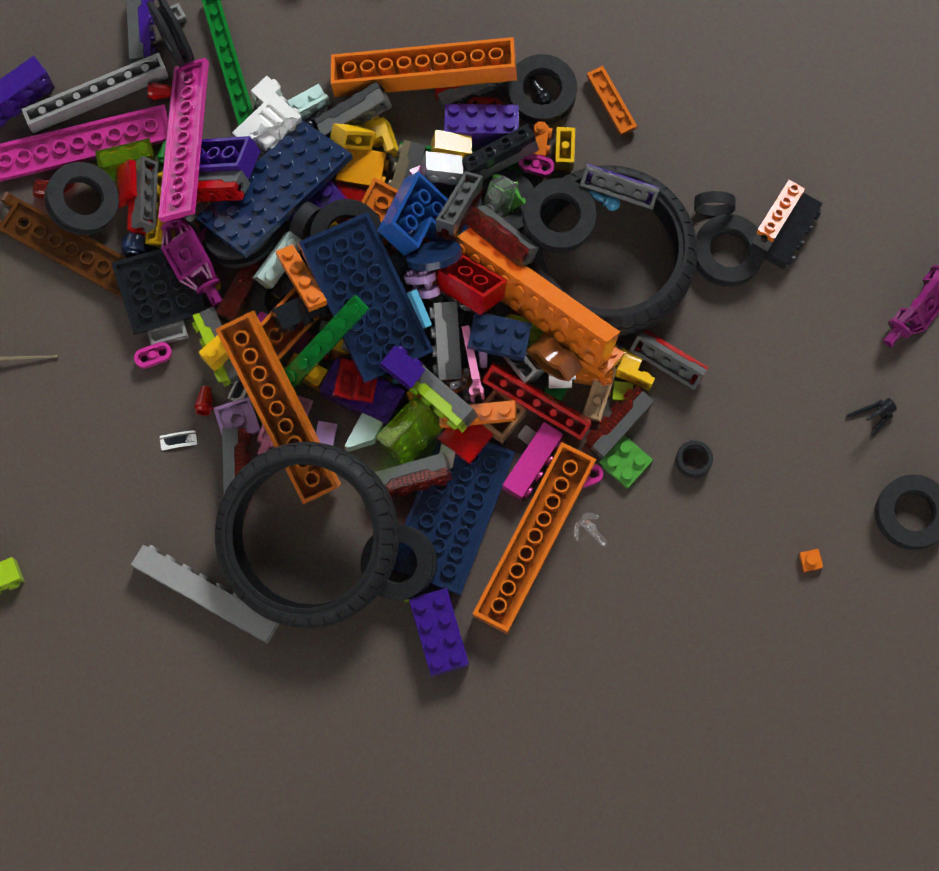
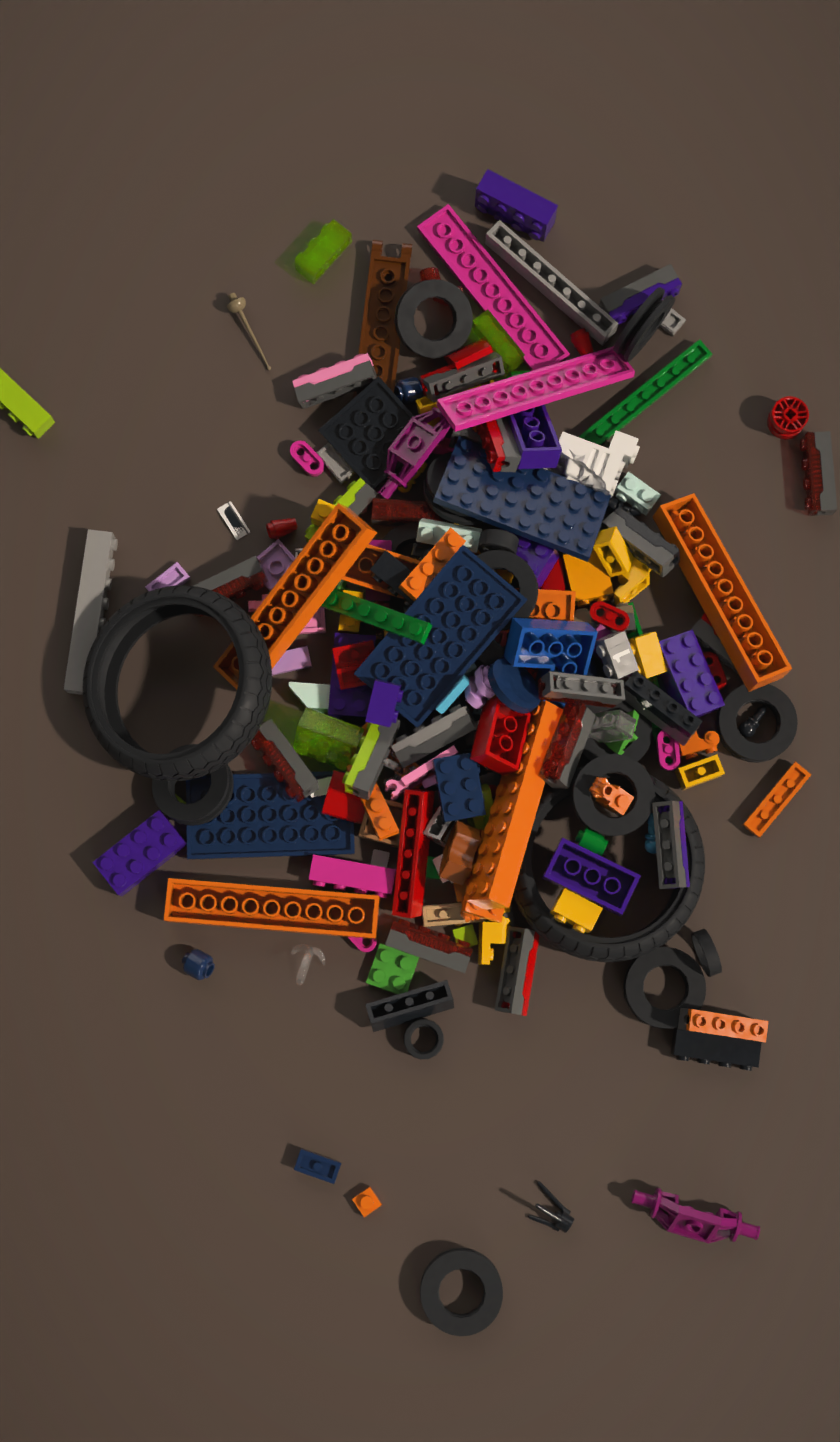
camera: 65 degrees right, 5 degrees up
(96, 302) = (334, 380): none -> dark grey piece
(207, 516) = (172, 576): none -> lavender tile
(405, 159) = (610, 616): none -> red plate
(555, 621) = (198, 964): none -> dark blue head
(561, 215) = (611, 796): none -> orange brick
(590, 248) = (591, 841): none -> green brick
(619, 259) = (591, 876): none -> dark purple brick
(642, 283) = (575, 910): none -> yellow brick
(663, 457) = (410, 1006): none -> black brick
(766, 588) = (317, 1166): none -> dark blue plate

